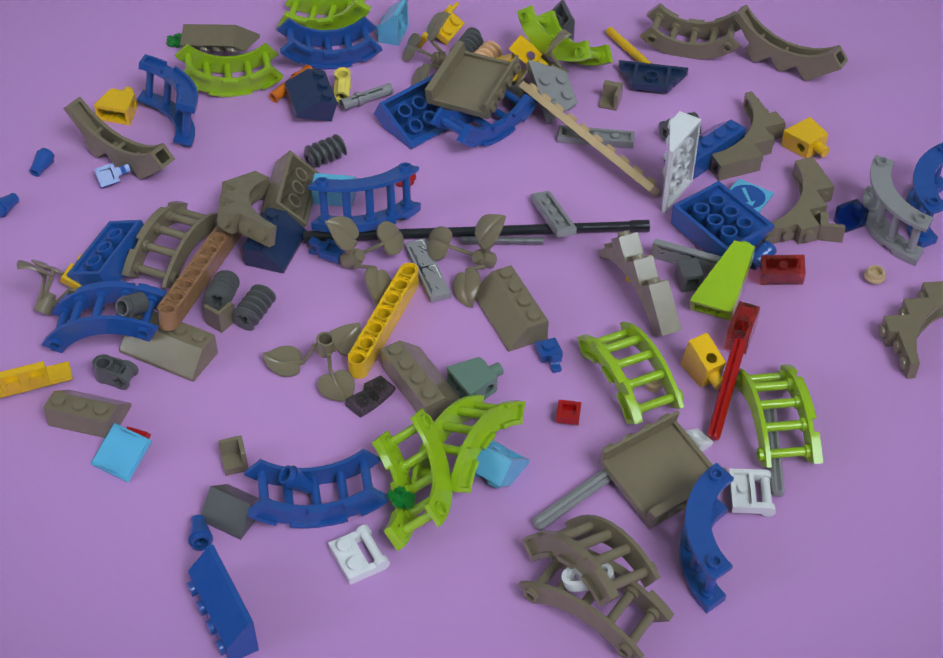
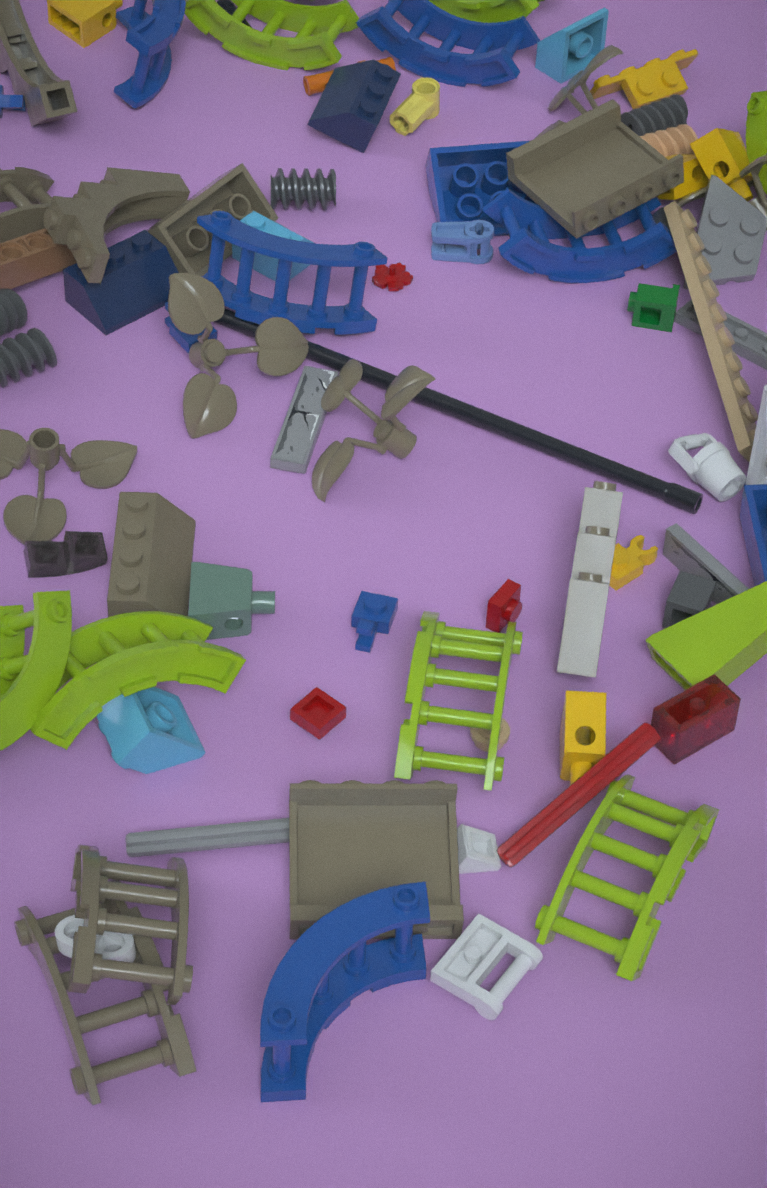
camera: 30 degrees right, 0 degrees up
(359, 99) = (437, 136): light grey pin -> none
(383, 320) = (175, 457): yellow beam -> none
(426, 145) = (460, 241): none -> medium blue piece
(506, 241) = (461, 430): flat silver bar -> none
(511, 309) = (368, 528): dark tan slope -> none
(547, 138) = (654, 306): none -> green brick
(553, 214) = (557, 420): light grey tile -> none
(609, 317) = (504, 606): none -> red plate
(644, 206) = (711, 466): none -> white piece
(776, 470) = (563, 948): light grey axle -> none

